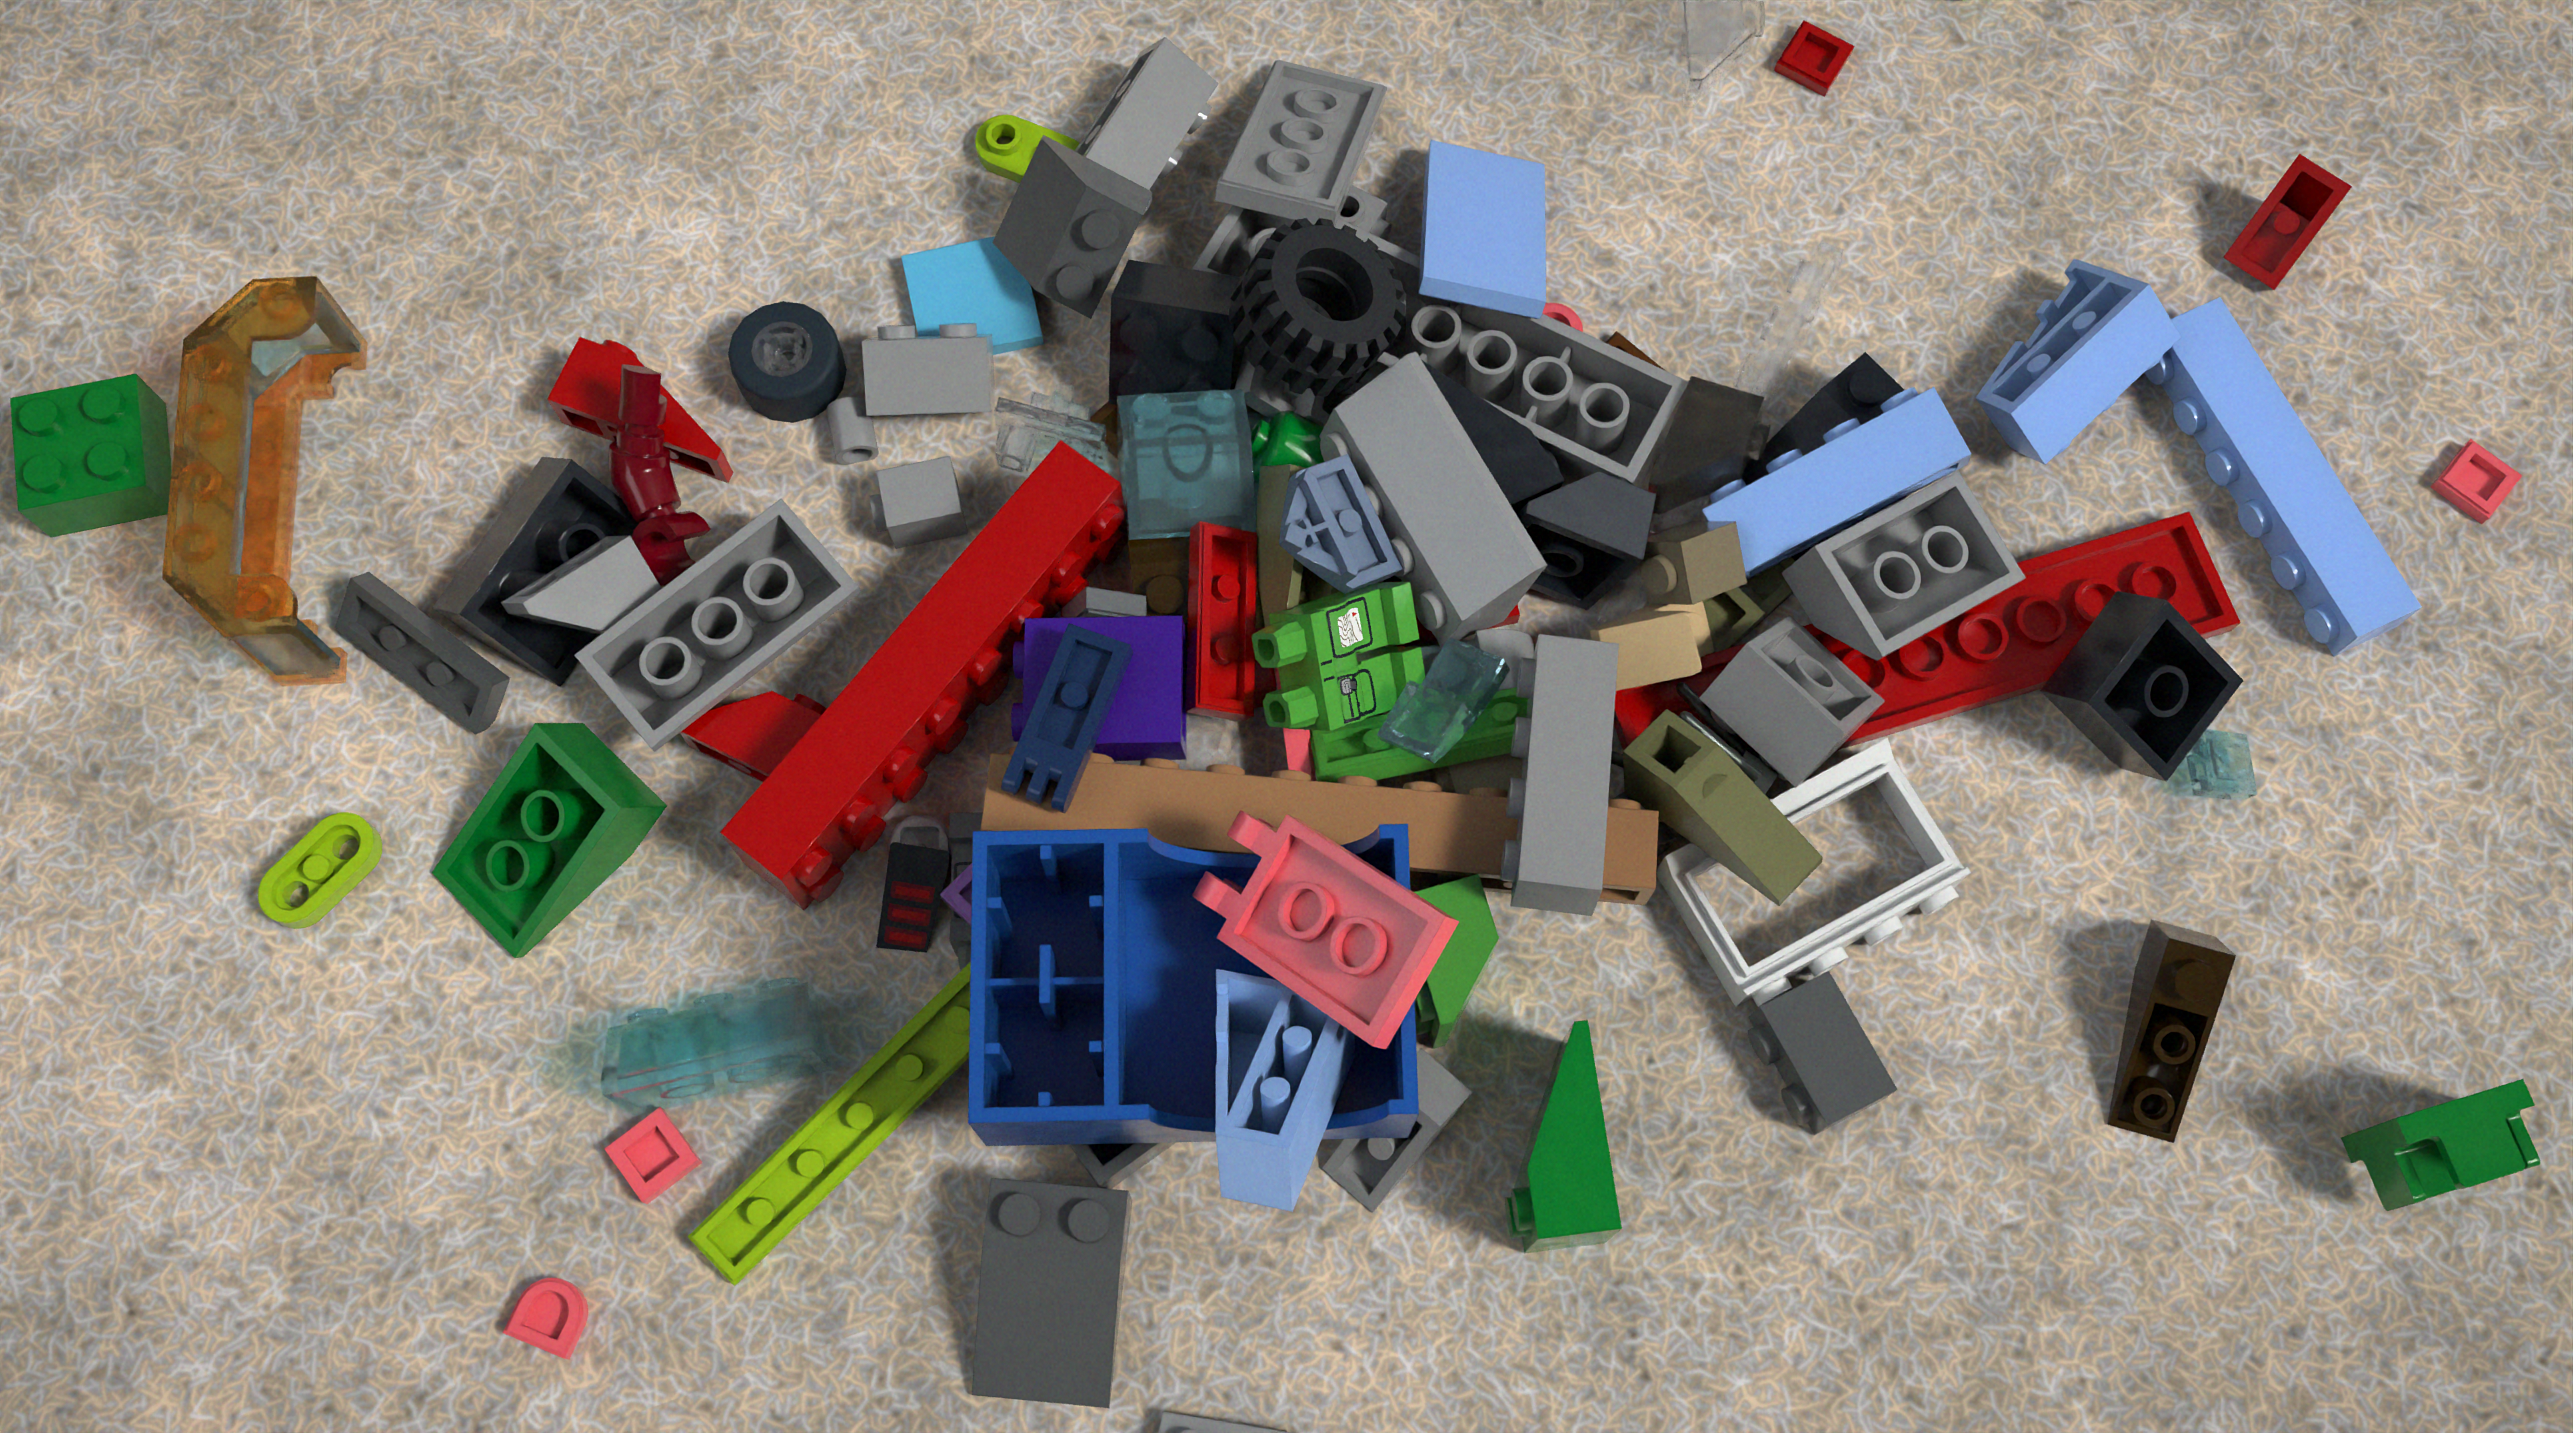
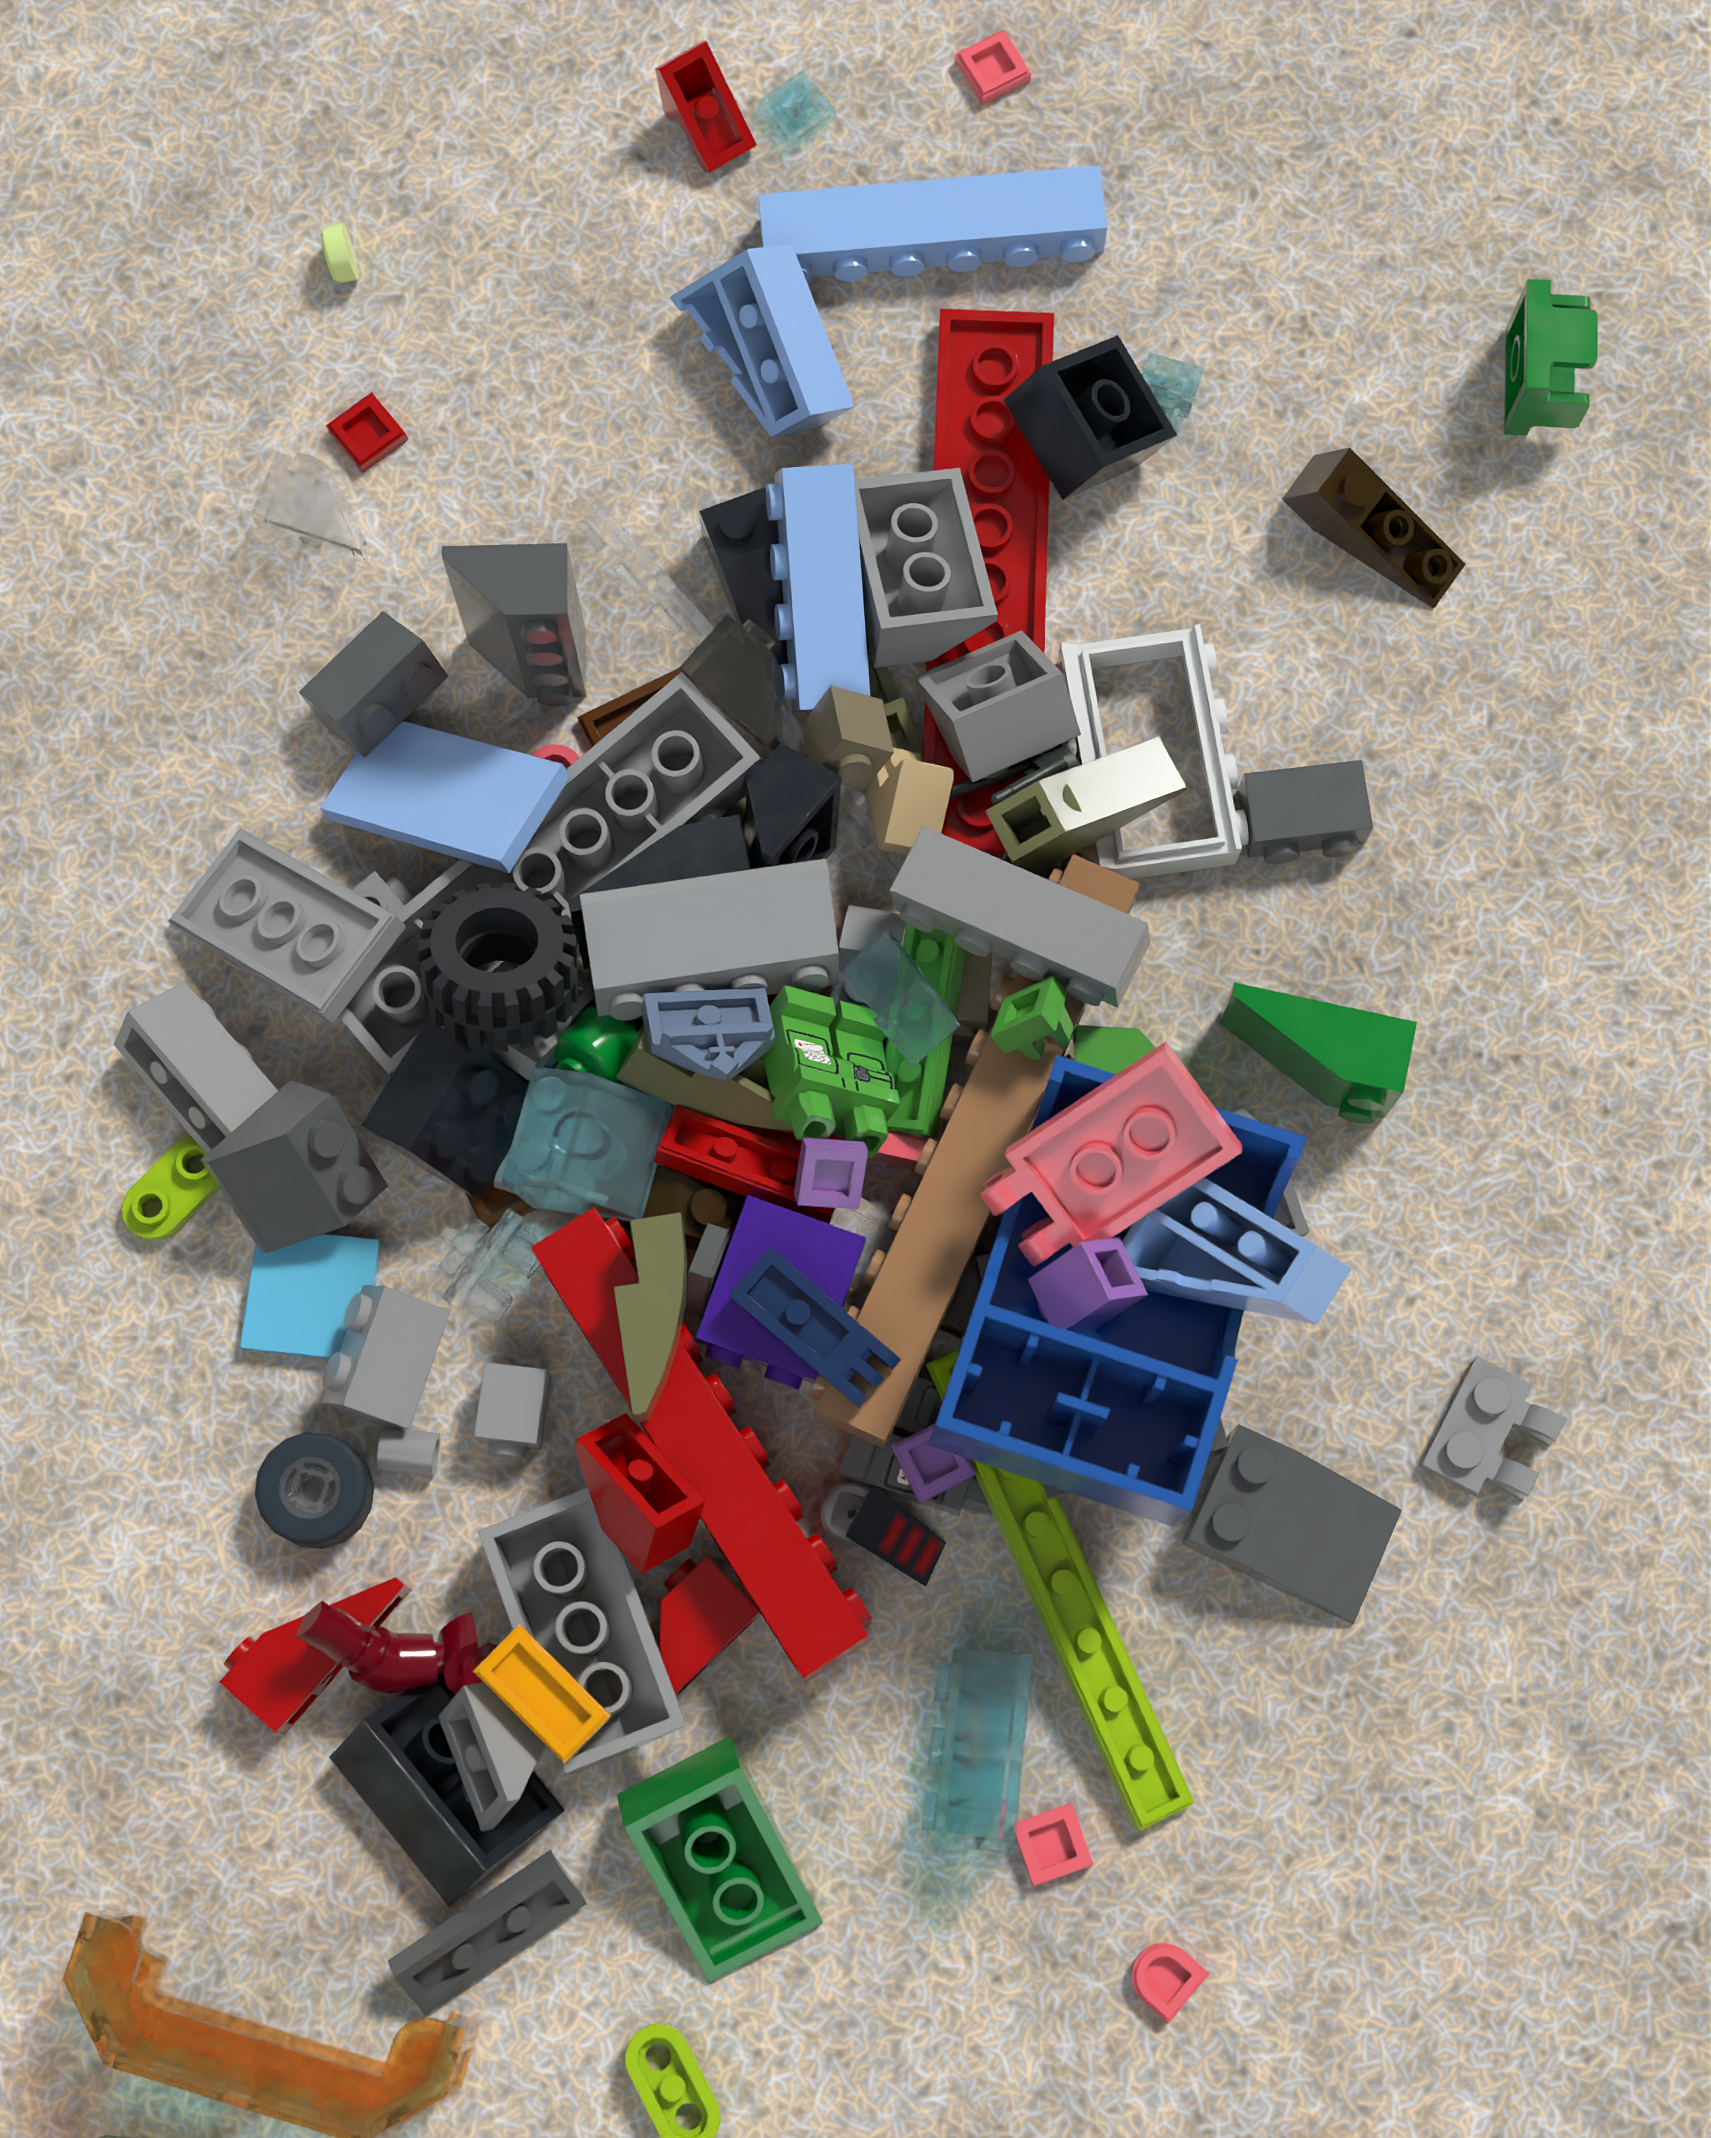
camera: 70 degrees left, 5 degrees up
(640, 606) = (542, 1693): none -> light orange tile
(855, 618) = (638, 1493): none -> red slope
(1027, 562) = (653, 1309): none -> olive slope
(1186, 952) = (1087, 1286): none -> medium lavender brick
(1231, 684) = (830, 1173): none -> medium lavender tile
(1459, 821) = (1030, 1017): none -> bright green tile
(1567, 140) = (373, 683): none -> dark grey brick
(1683, 223) = (523, 615): none -> dark grey slope
(2331, 315) = (796, 110): none -> clear light blue tile

